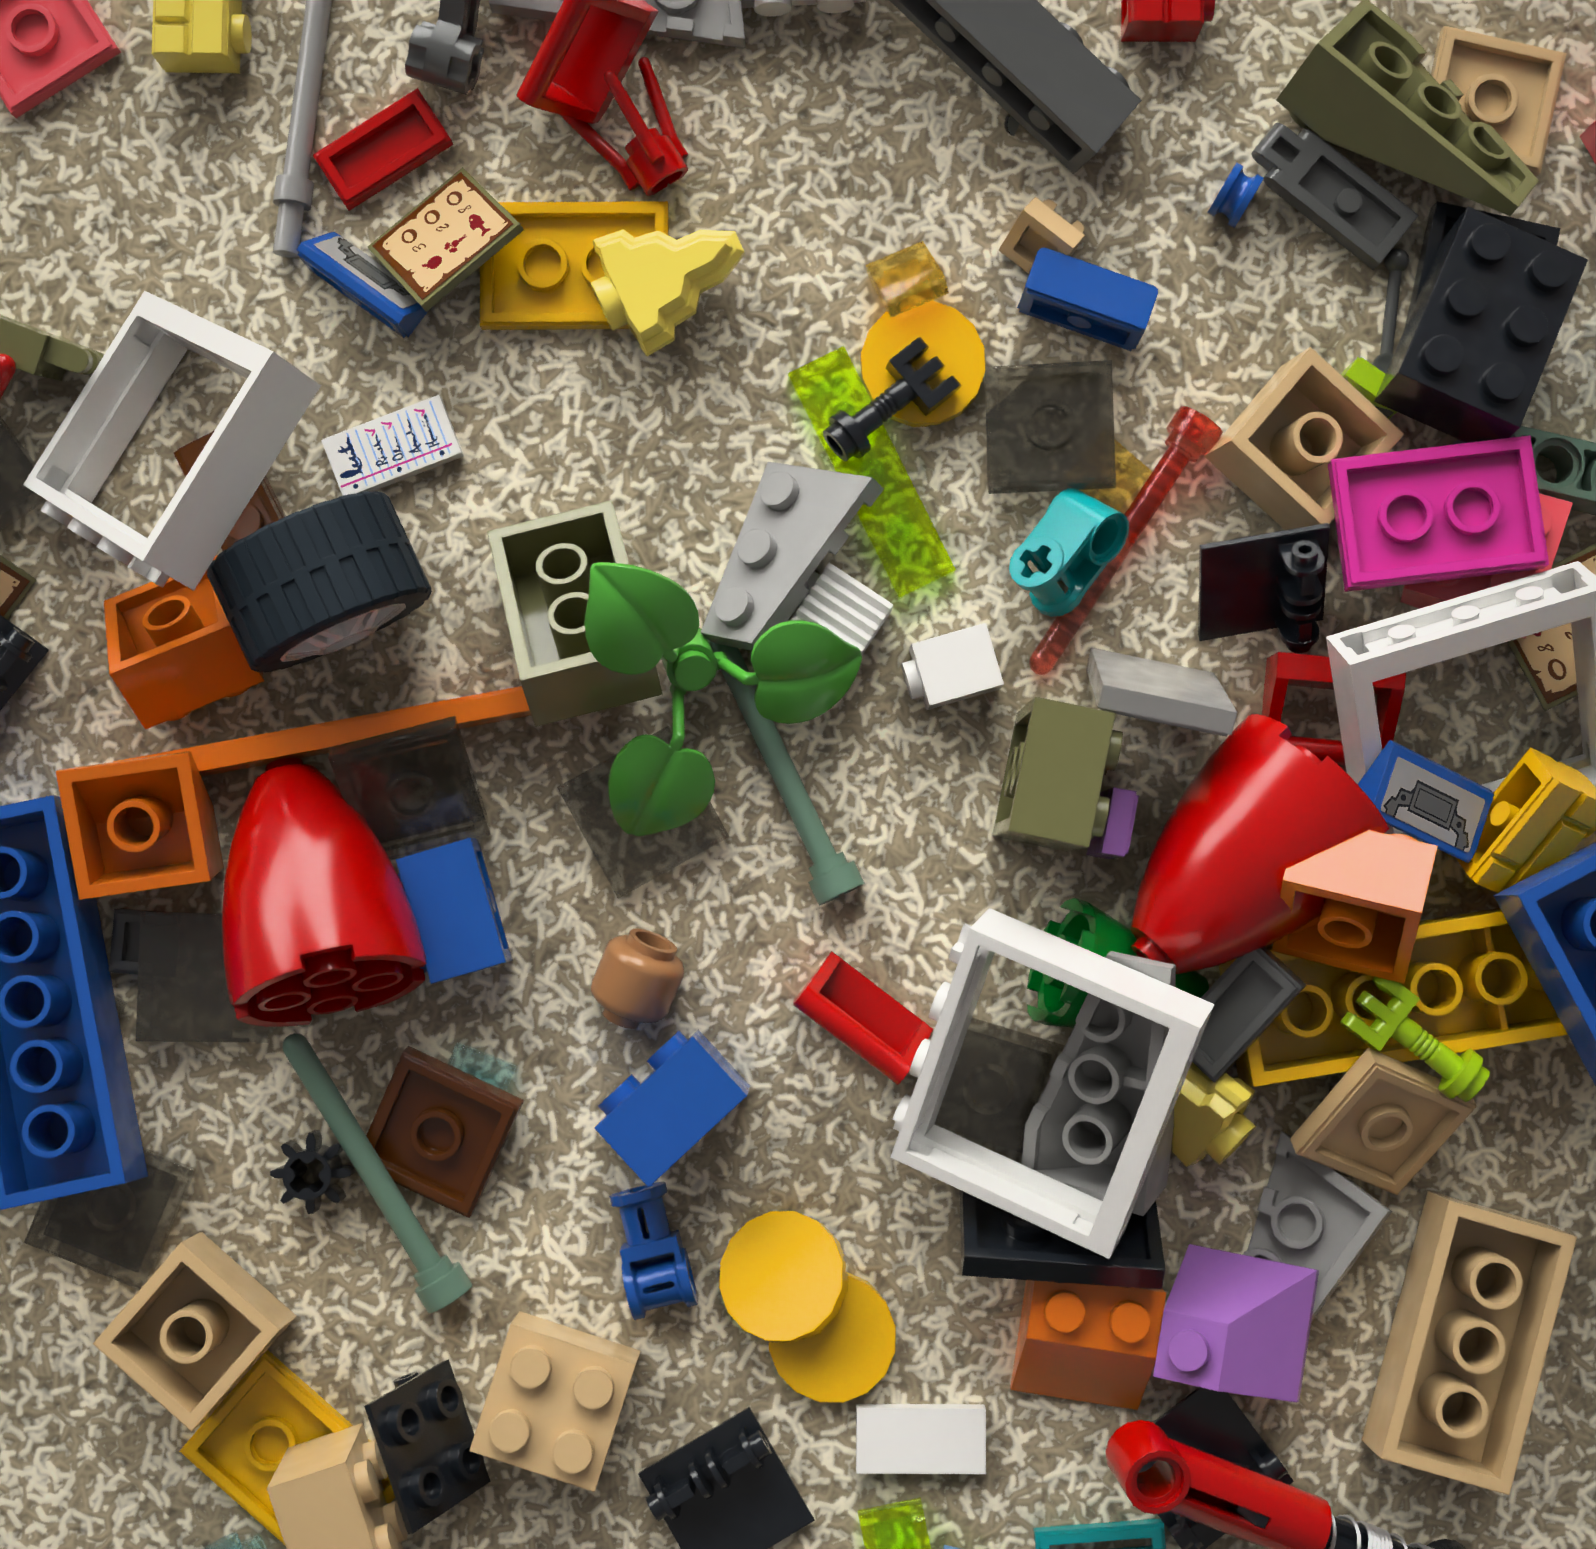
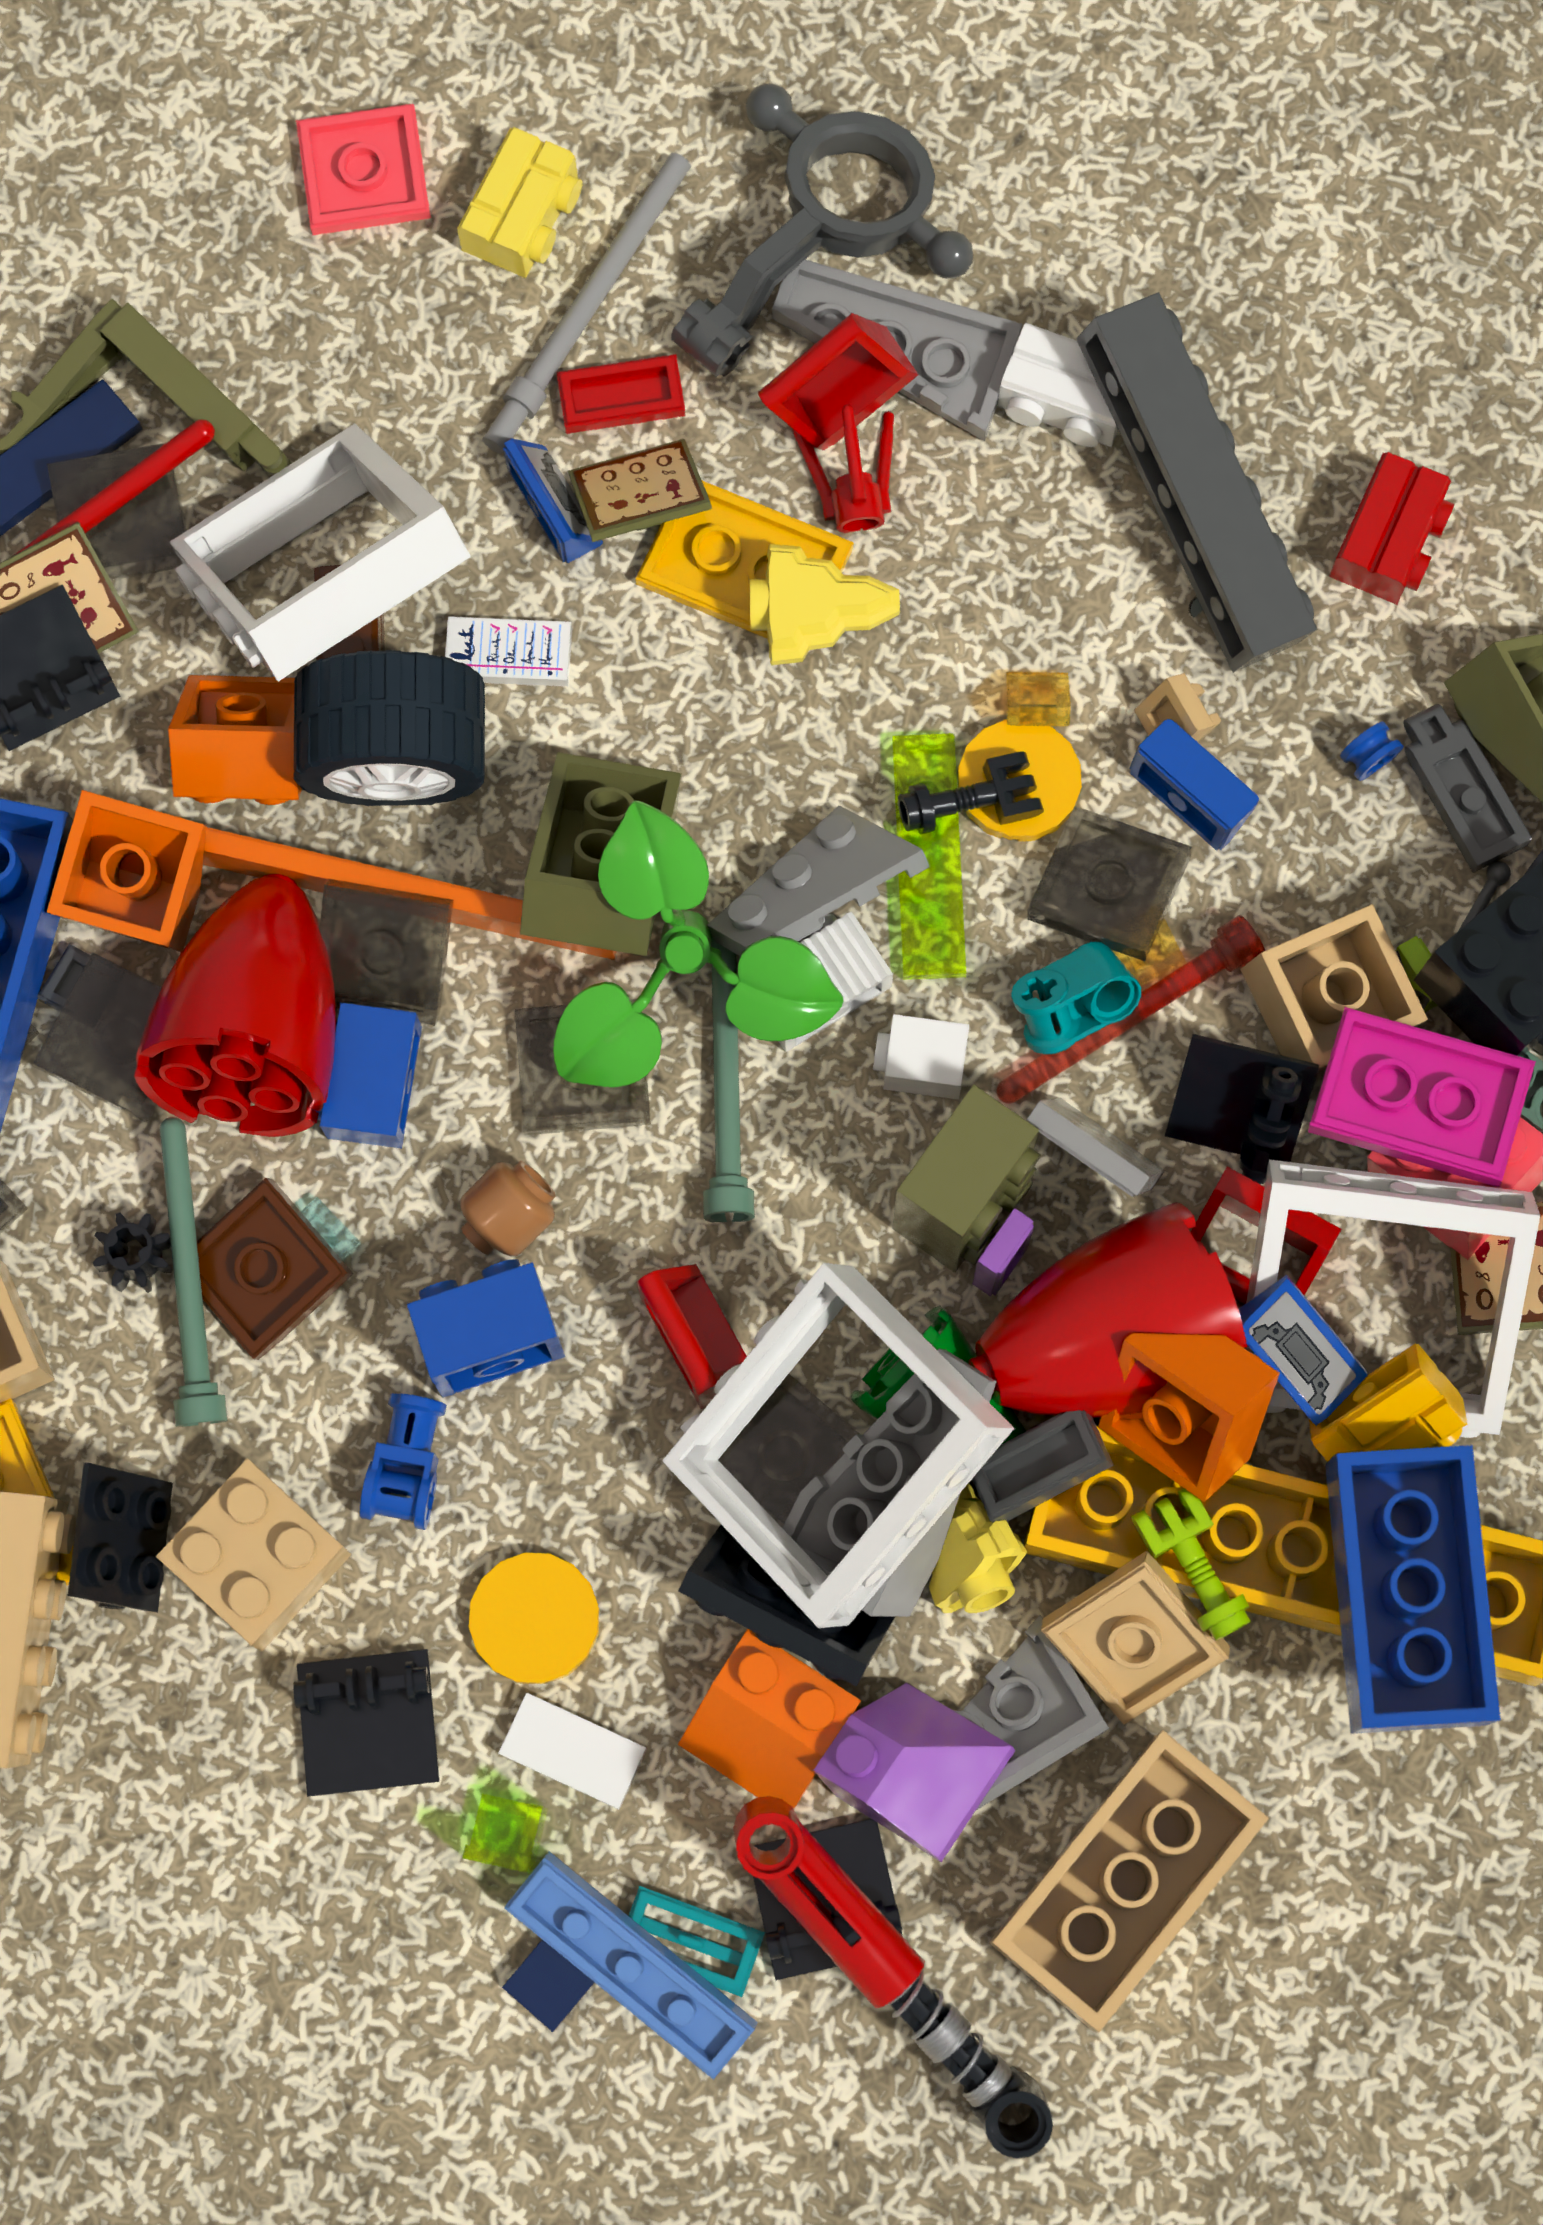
camera: 25 degrees right, 10 degrees down
(783, 1277) = (514, 1537): yellow tile -> none

